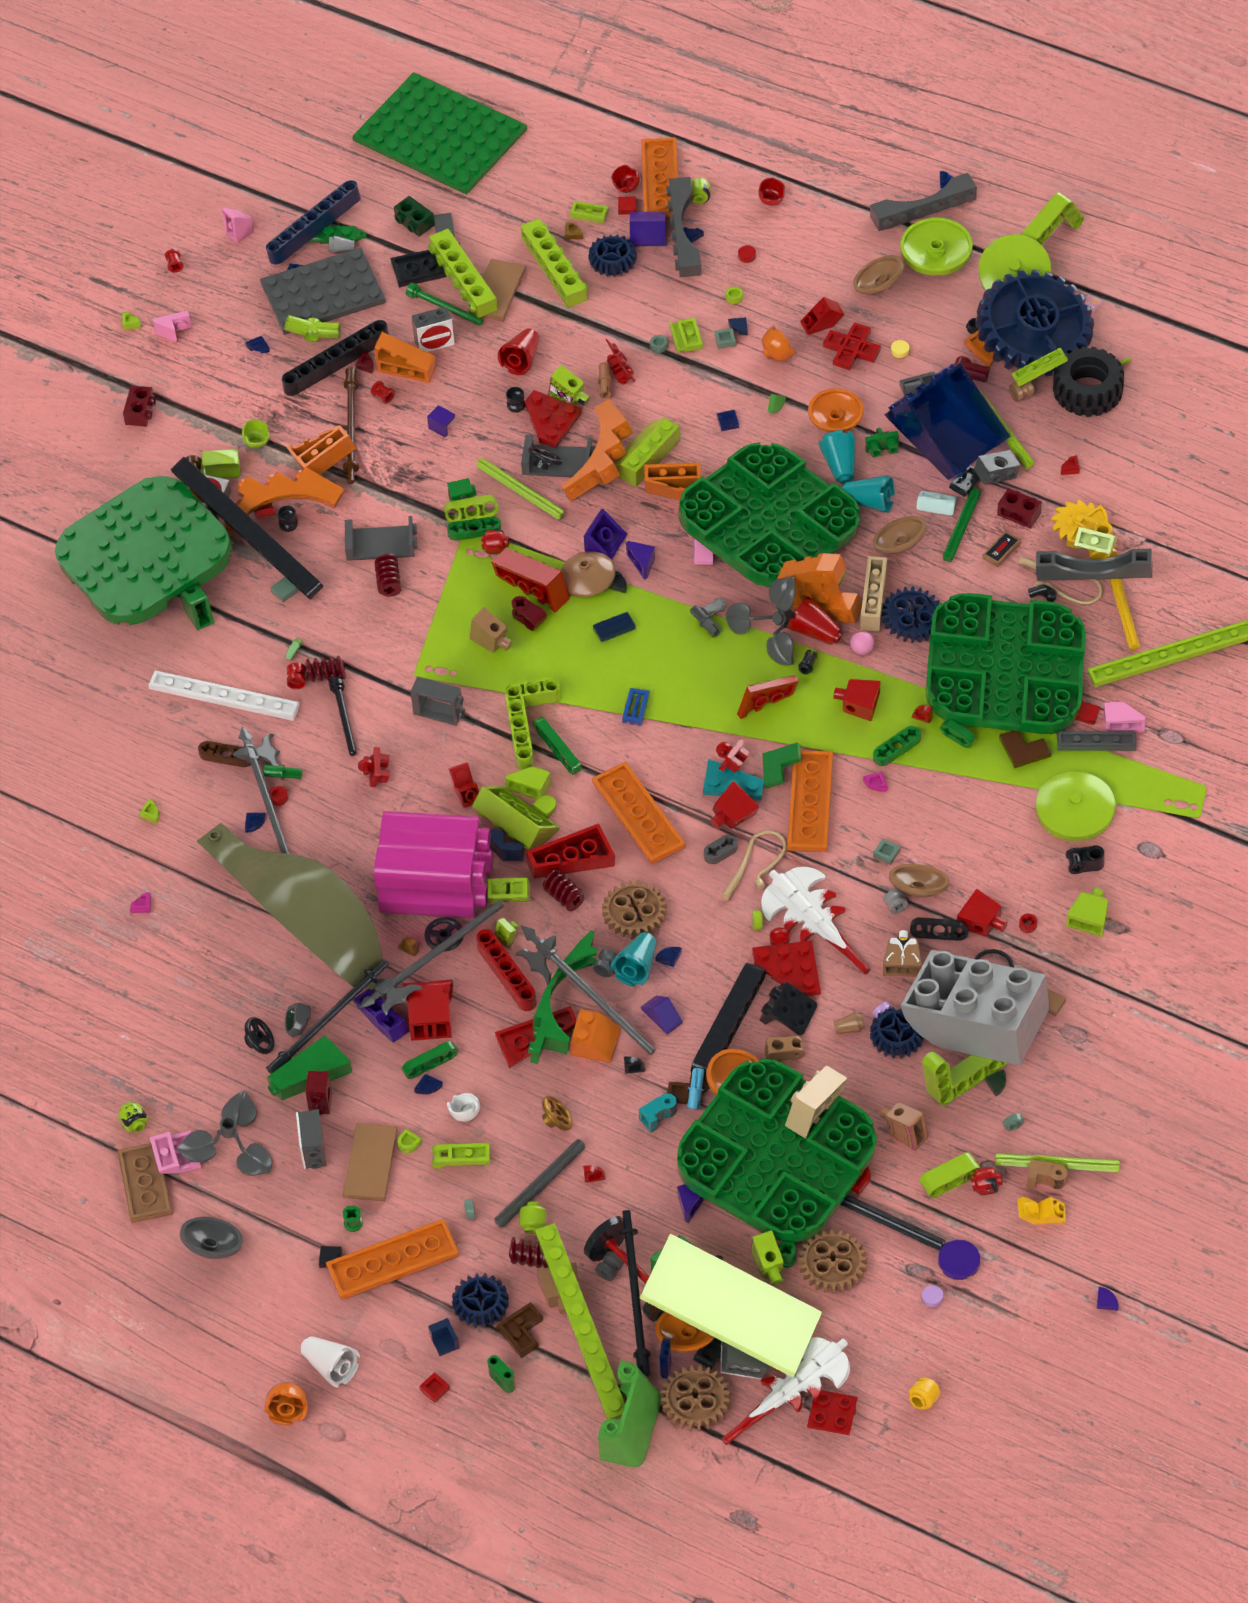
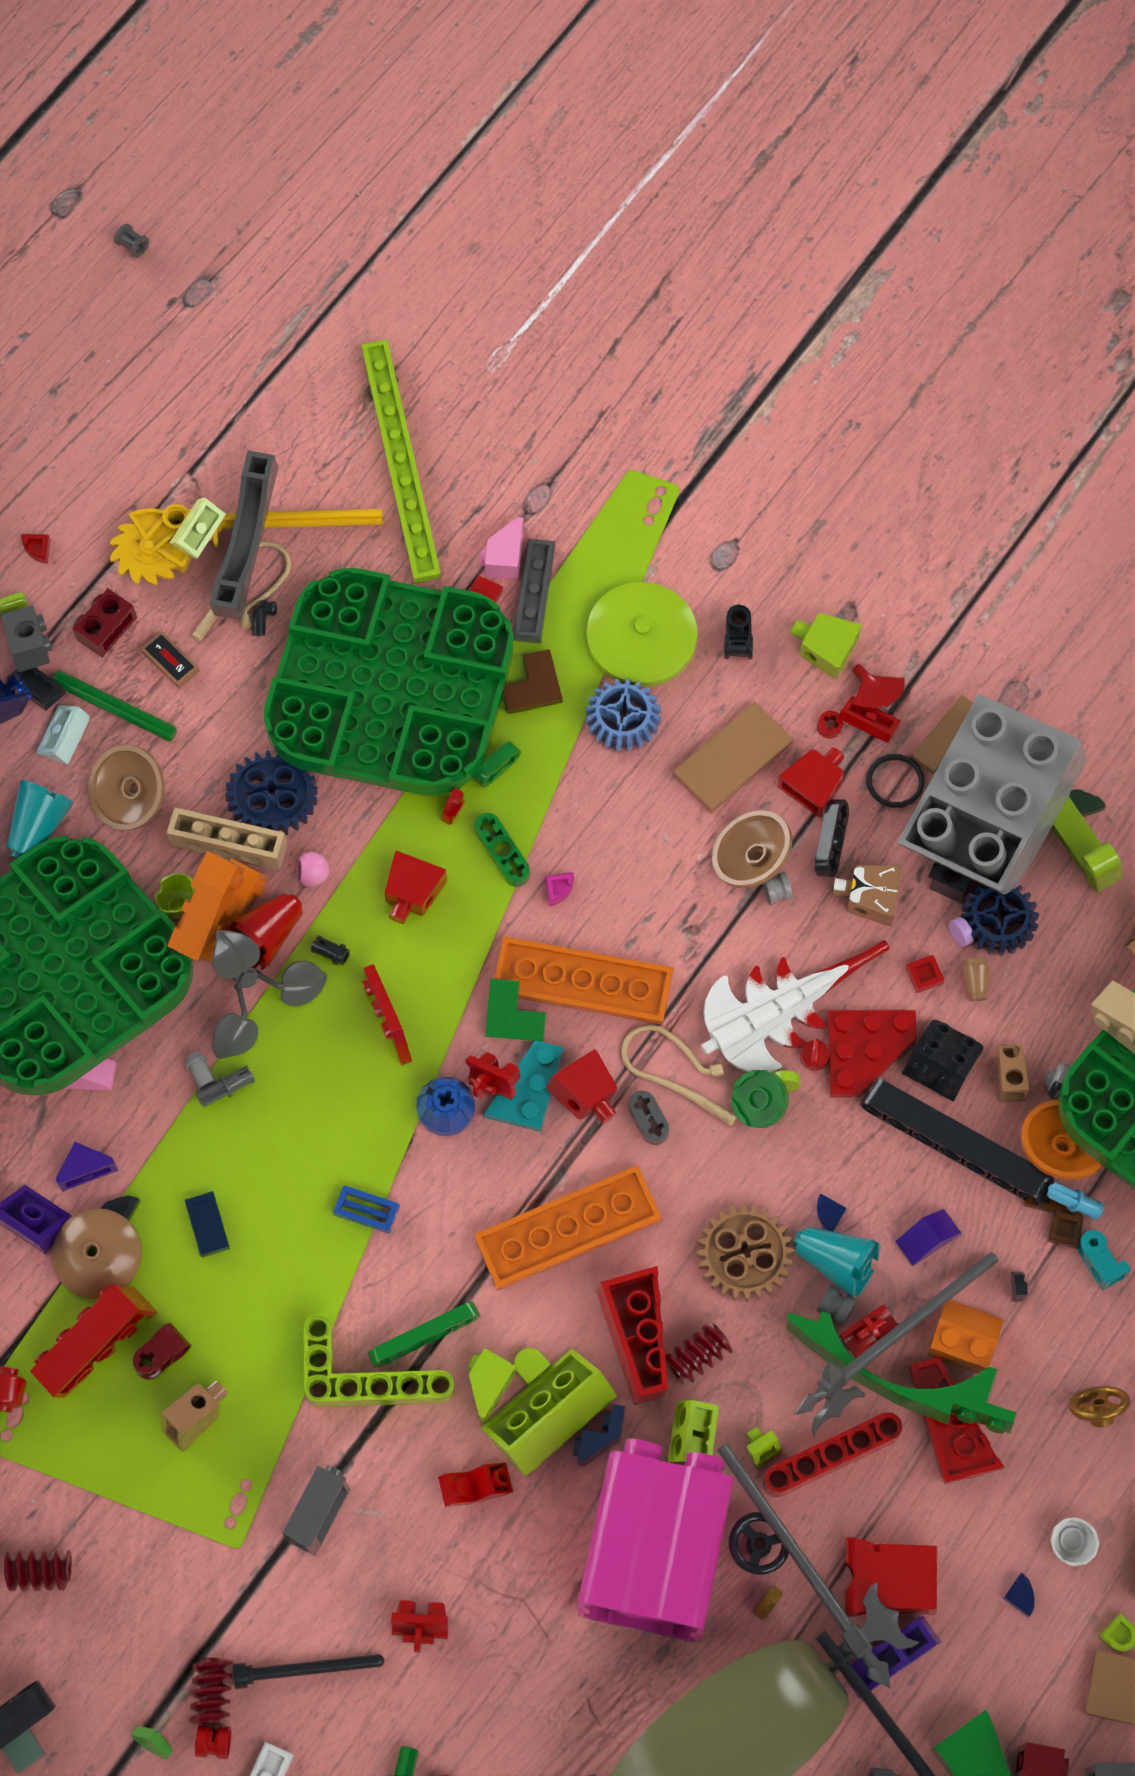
camera: 85 degrees left, 15 degrees up
(429, 1060) = (982, 1587): green beam -> none
(591, 977) = (868, 1330): none -> red hips
(708, 735) = (445, 1106): none -> blue piece
(741, 905) = (759, 1098): none -> green tile
(849, 996) = (925, 973): none -> red tile
(886, 851) = (683, 890): sand green tile -> none
(992, 869) = (733, 757): none -> medium nougat tile
(997, 803) = (634, 716): none -> medium blue gear
(1034, 943) = (871, 721): none -> red plate
(1059, 947) = (876, 690): none -> red hand

